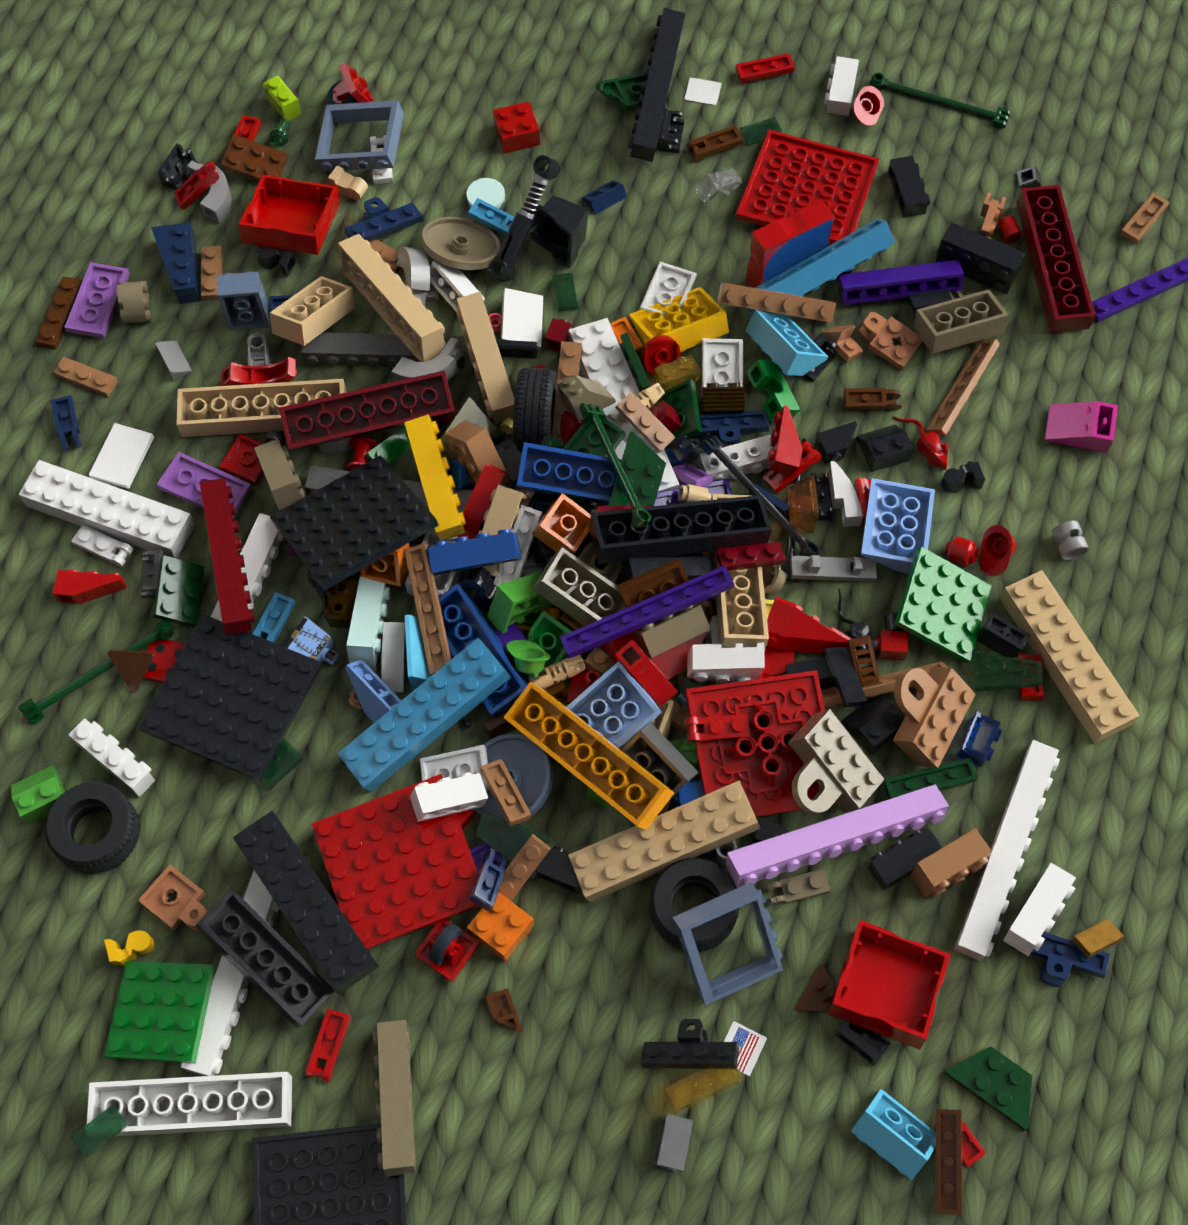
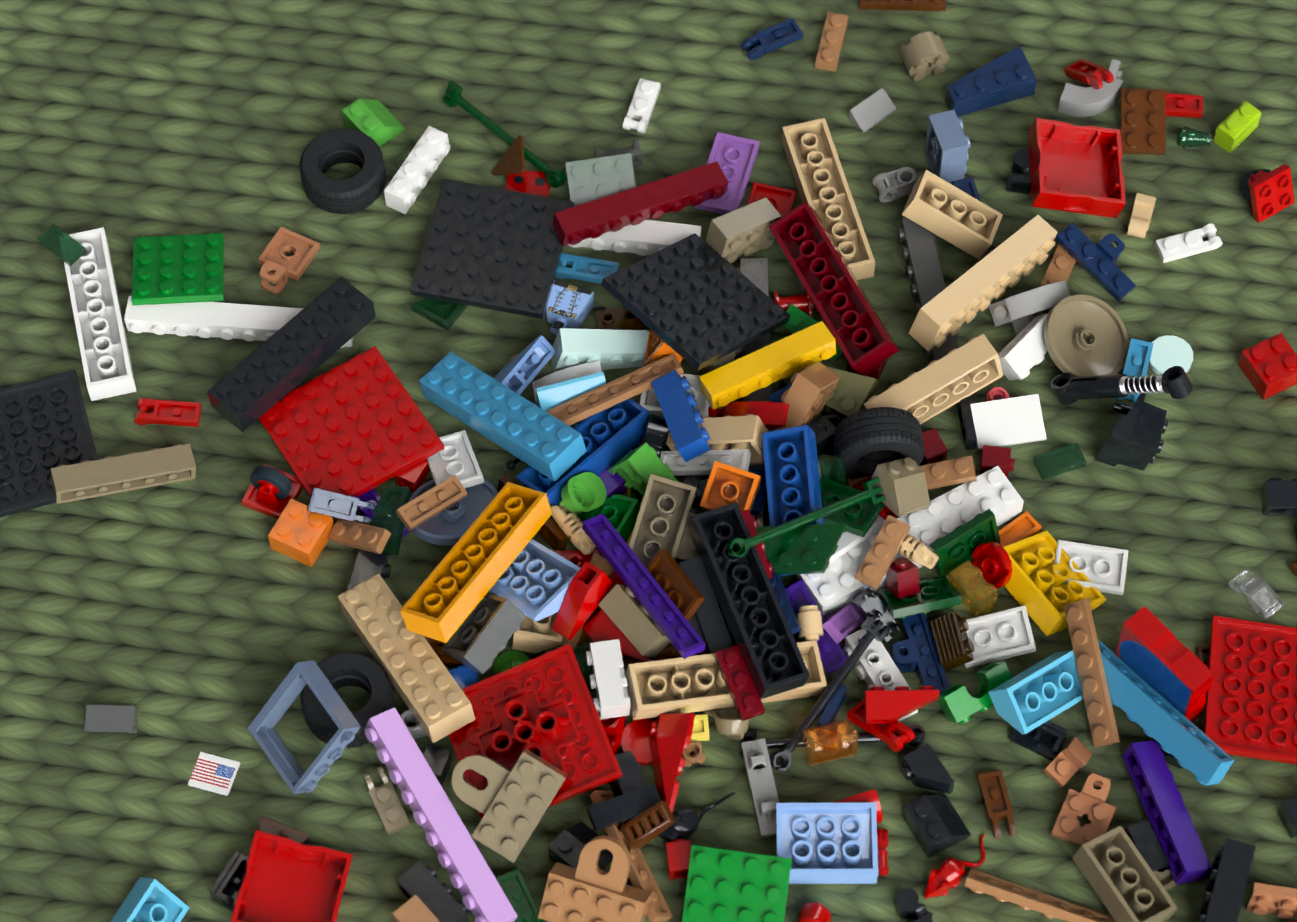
camera: 80 degrees right, 5 degrees down
(82, 587) = (590, 101): red slope -> none
(96, 300) = (904, 22): medium lavender plate -> none
(107, 509) = (678, 98): white brick -> none
(121, 456) = (746, 96): white tile -> none
(137, 943) = (235, 233): yellow leg -> none
(174, 169) = (1108, 48): black hinge -> none
(210, 267) = (992, 118): medium nougat plate -> none
(244, 375) = (863, 189): red arch -> none
(264, 958) = (233, 329): black brick -> none
(360, 113) = (1204, 240): sand blue window -> none
(444, 361) = (911, 349): light grey arch -> none
(448, 796) = (415, 449): white brick -> none
(503, 1009) = (222, 554): reddish brown slope -> none
(605, 196) = (1206, 479): dark blue slope -> none
(691, 1051) = (199, 717): black plate -> none
(700, 1087) = (169, 737): clear yellow brick -> none
(717, 727) = (533, 682): red plate -> none
(823, 497) = (851, 762): black hinge -> none
(844, 496) = (860, 781): white slope -> none

